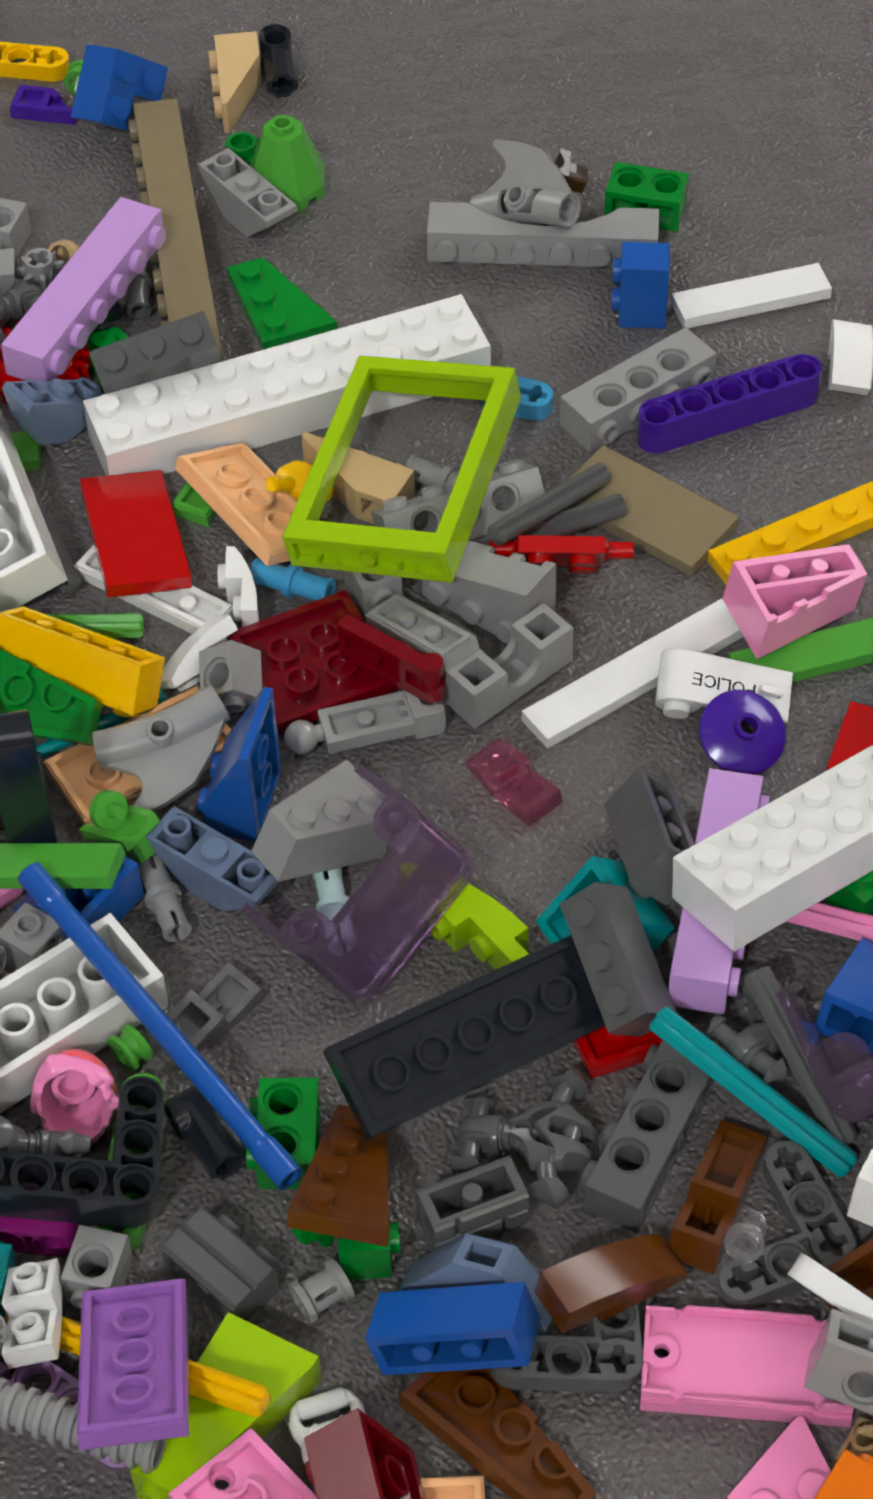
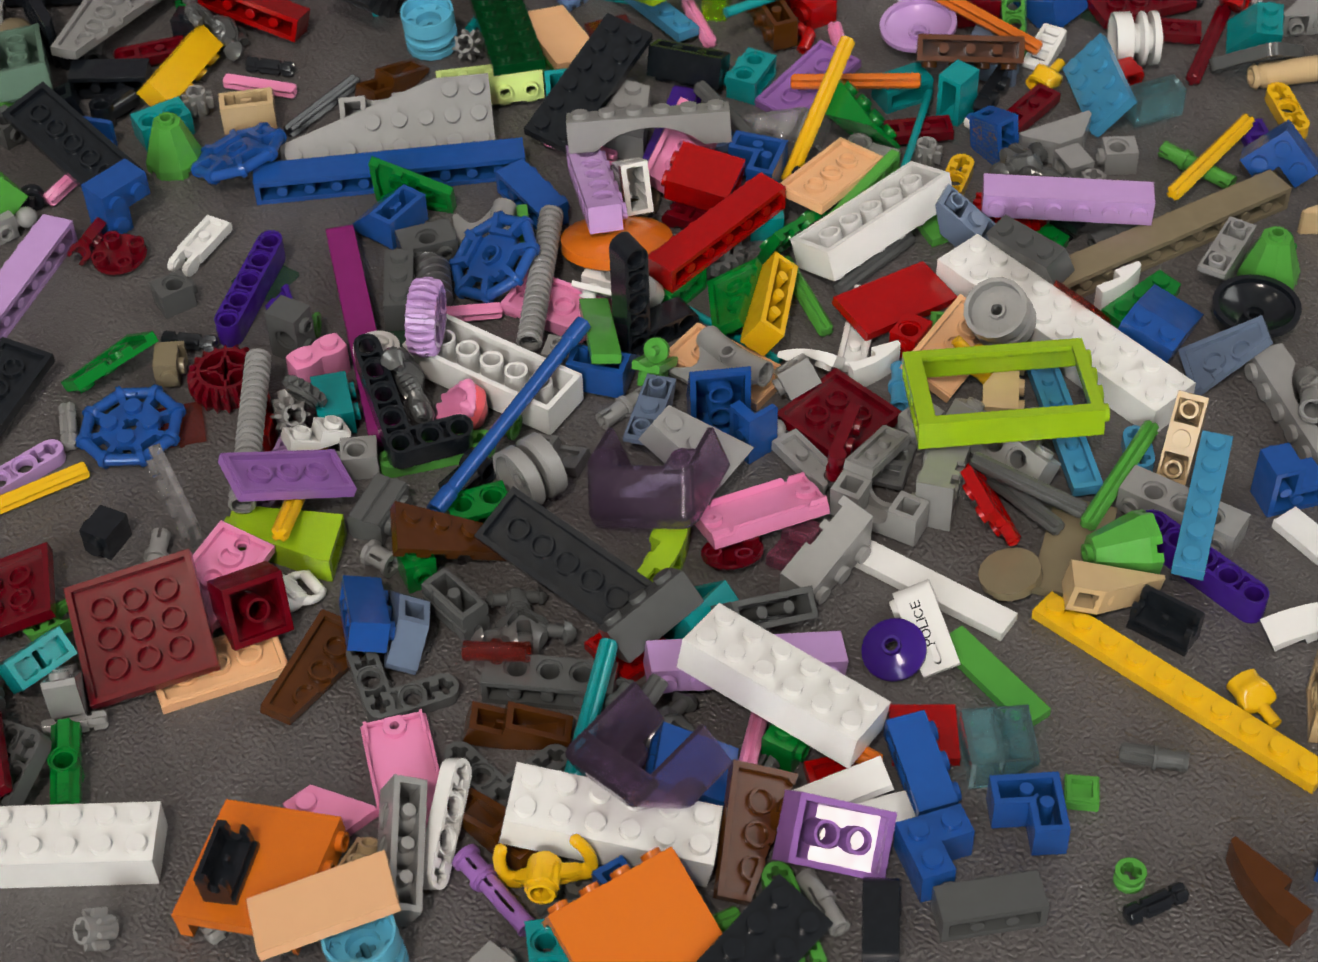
camera: 70 degrees right, 5 degrees down
(54, 173) = (1184, 159): none -> bright green pin
(73, 144) = (1210, 156): none -> yellow axle
(206, 535) = (909, 331): none -> red brick
(237, 311) = (1123, 280): none -> white slope
(256, 346) = (1081, 300): none -> clear red piece
(263, 1033) = (531, 468): none -> light grey wheel
(265, 398) = (999, 312): none -> light grey wheel
(309, 750) = (754, 428): none -> blue panel
(331, 294) = (1160, 322): none -> blue slope
(354, 202) = (1257, 295): none -> black dish
(415, 255) = (1223, 353): none -> sand blue wing
(448, 444) = (1072, 452): none -> dark azure plate
(451, 780) = (761, 510): none -> bright pink piece
(503, 849) = (734, 555): none -> dark red dish
(533, 341) = (1183, 436): none -> tan slope
(568, 424) = (1109, 489): none -> bright green axle
(572, 737) = (833, 552): none -> light grey wedge
(606, 1166) = (496, 651): none -> clear red pin
(607, 1280) = (423, 678): reddish brown slope -> none
(659, 359) = (1202, 505): none -> dark azure plate
(667, 578) = (1010, 574): none -> dark tan tile
(690, 444) = (1126, 543): none -> bright green cone
(740, 496) = (1104, 588): none -> tan slope
(746, 1237) = (481, 743): clear pin -> none
(792, 594) = (1020, 638): bright pink wedge -> none
(798, 464) = (1165, 620): none -> black hinge

